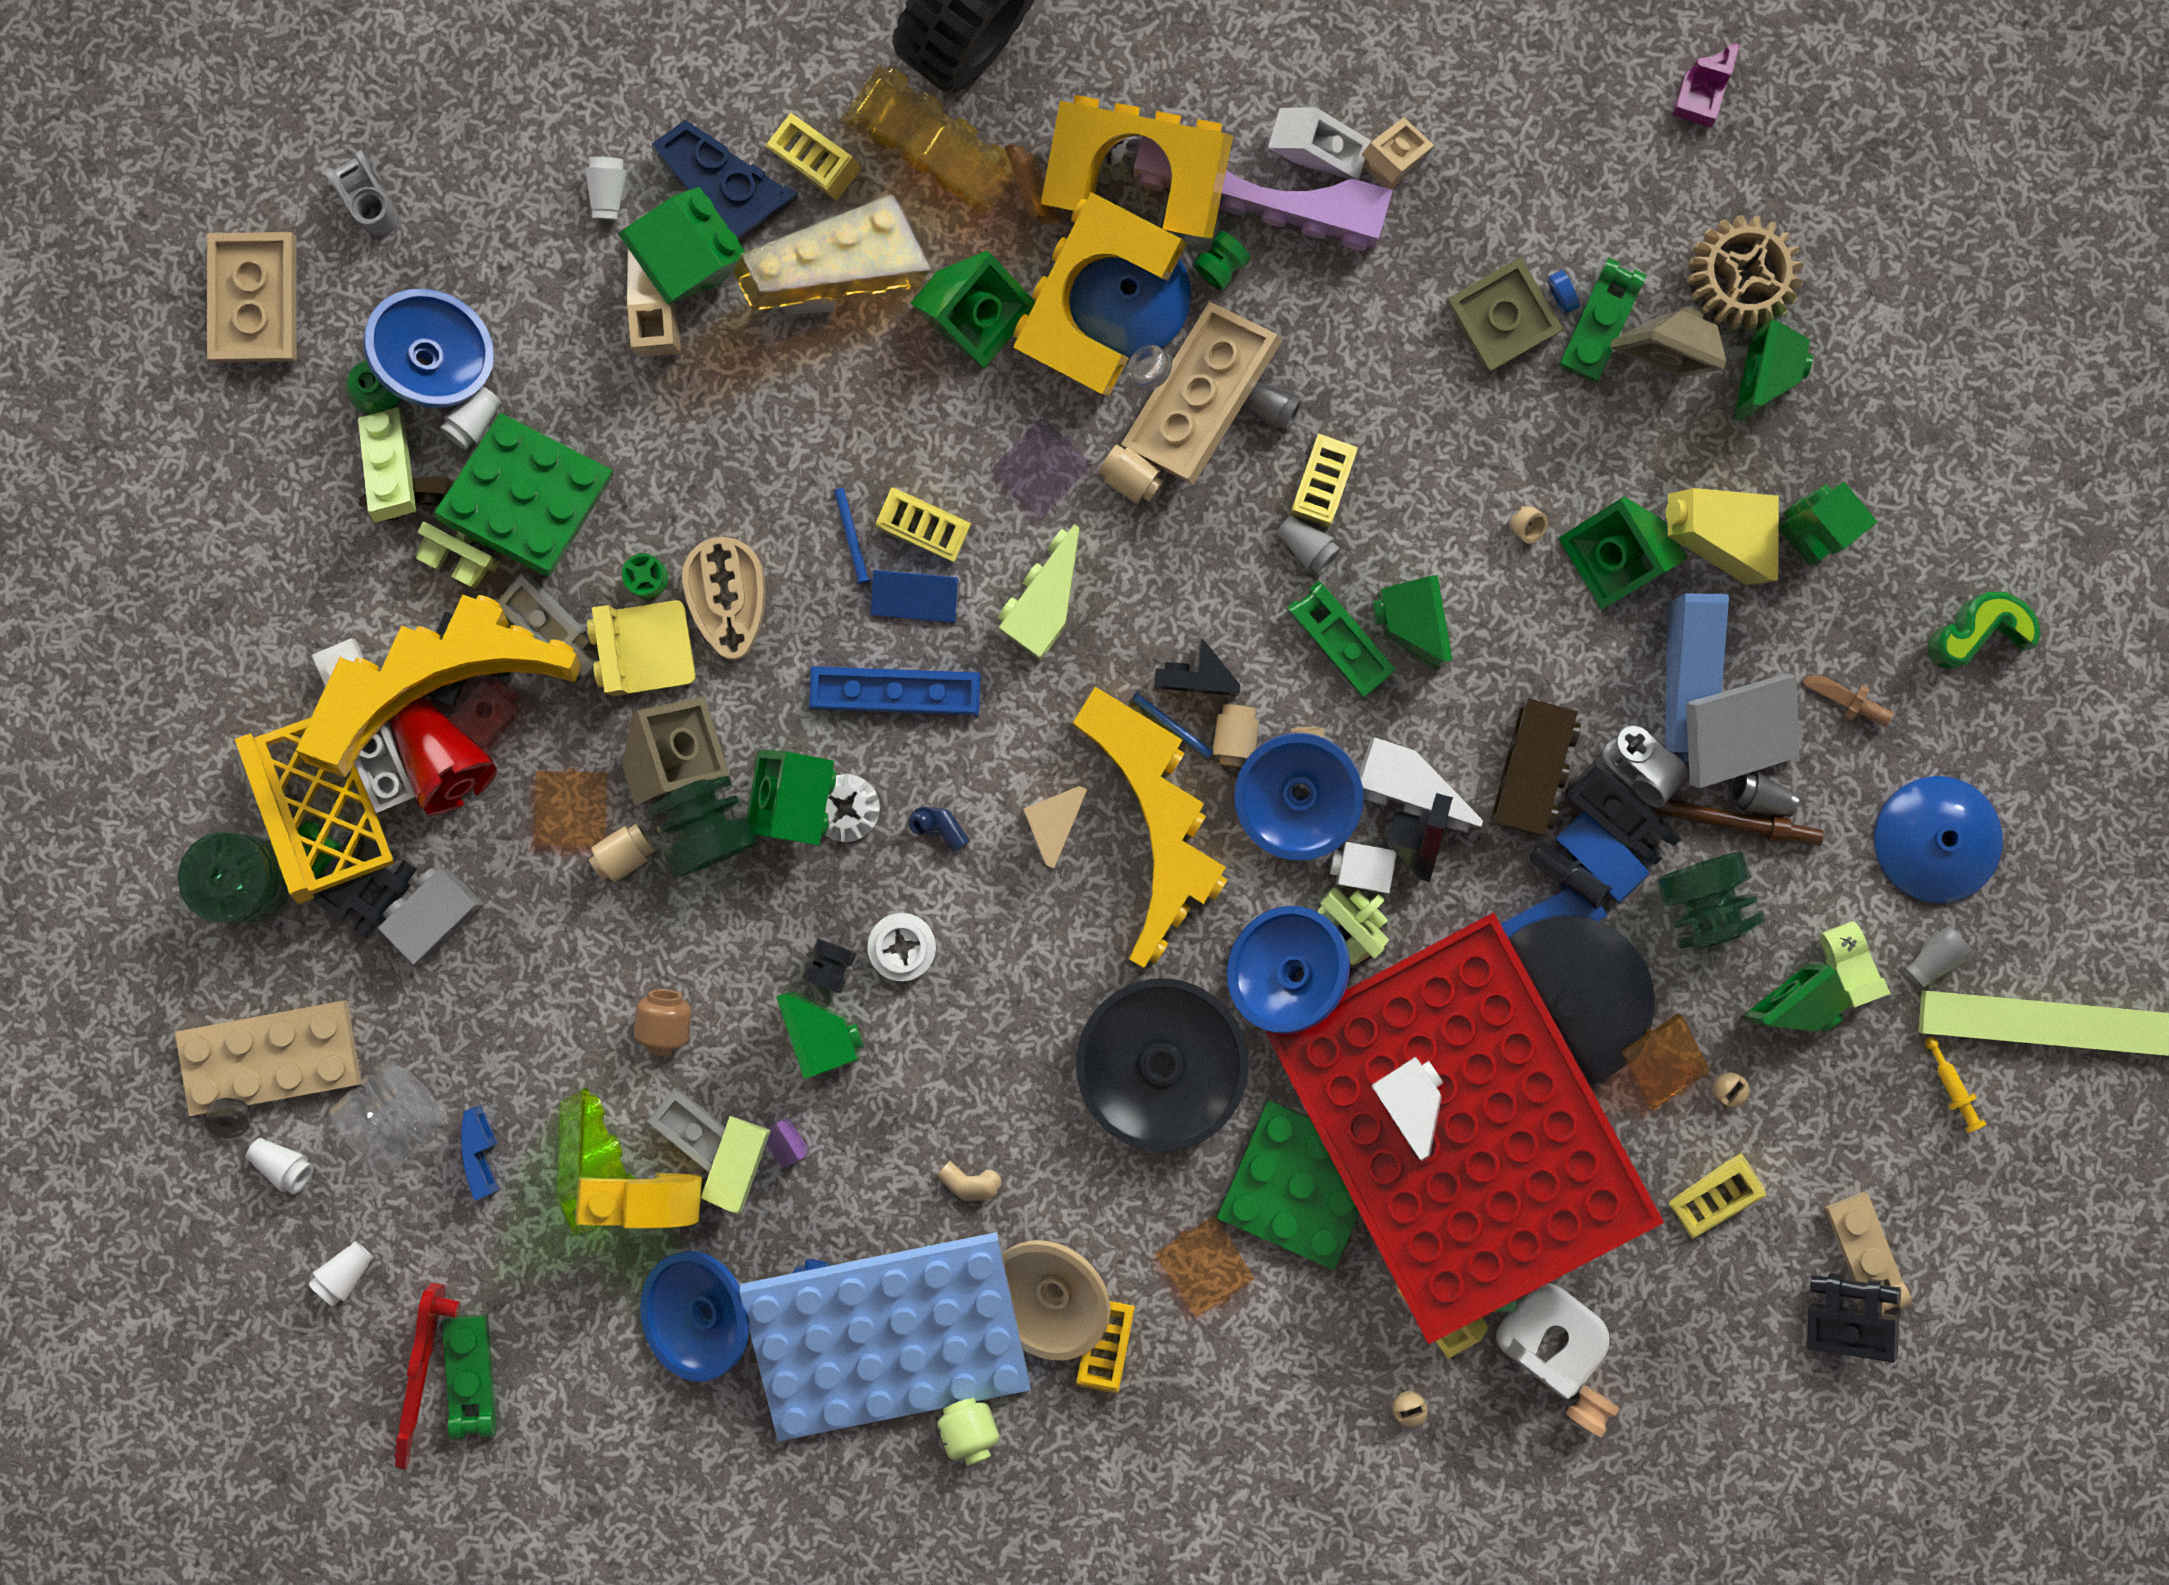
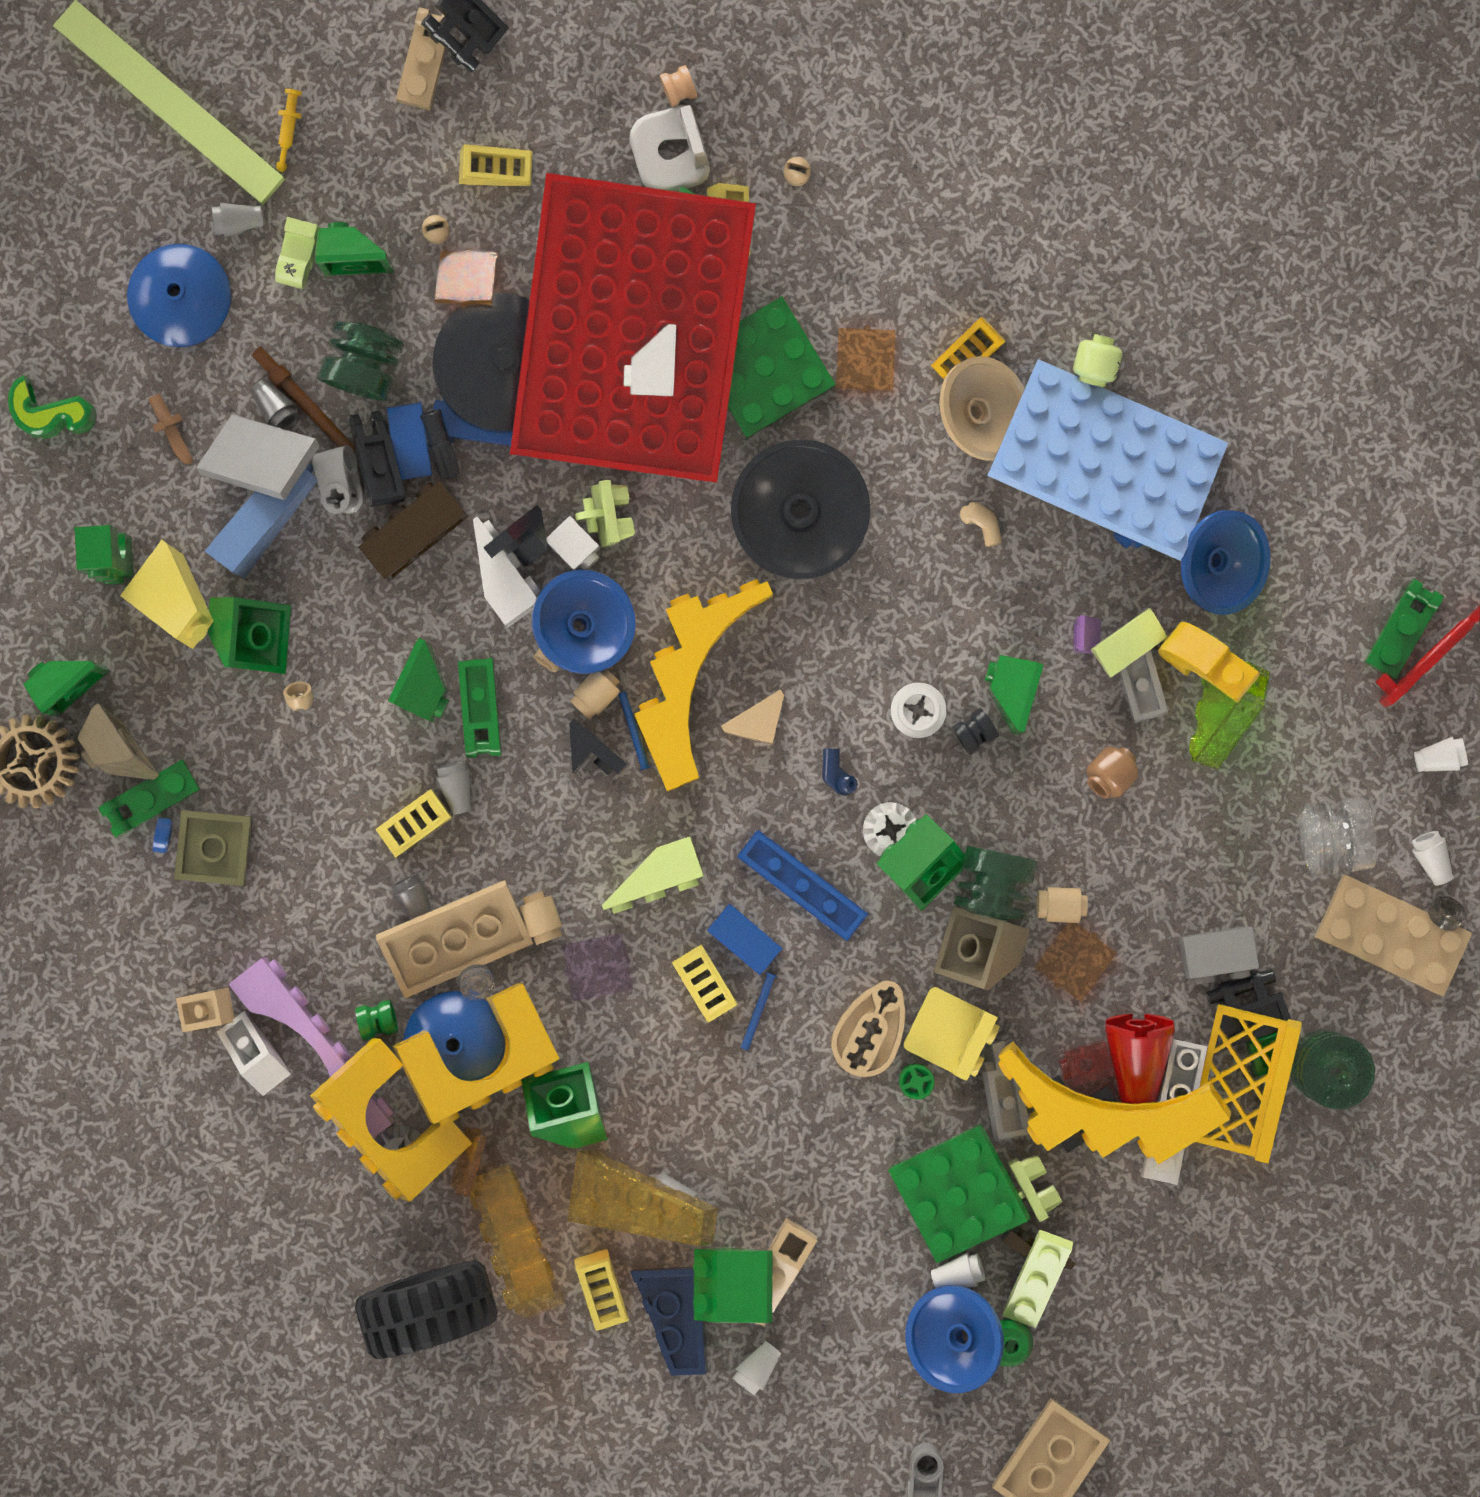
camera: 140 degrees left, 0 degrees up
(475, 1138) = (1290, 781): blue slope -> none
(1265, 967) = (682, 529): blue dish -> none

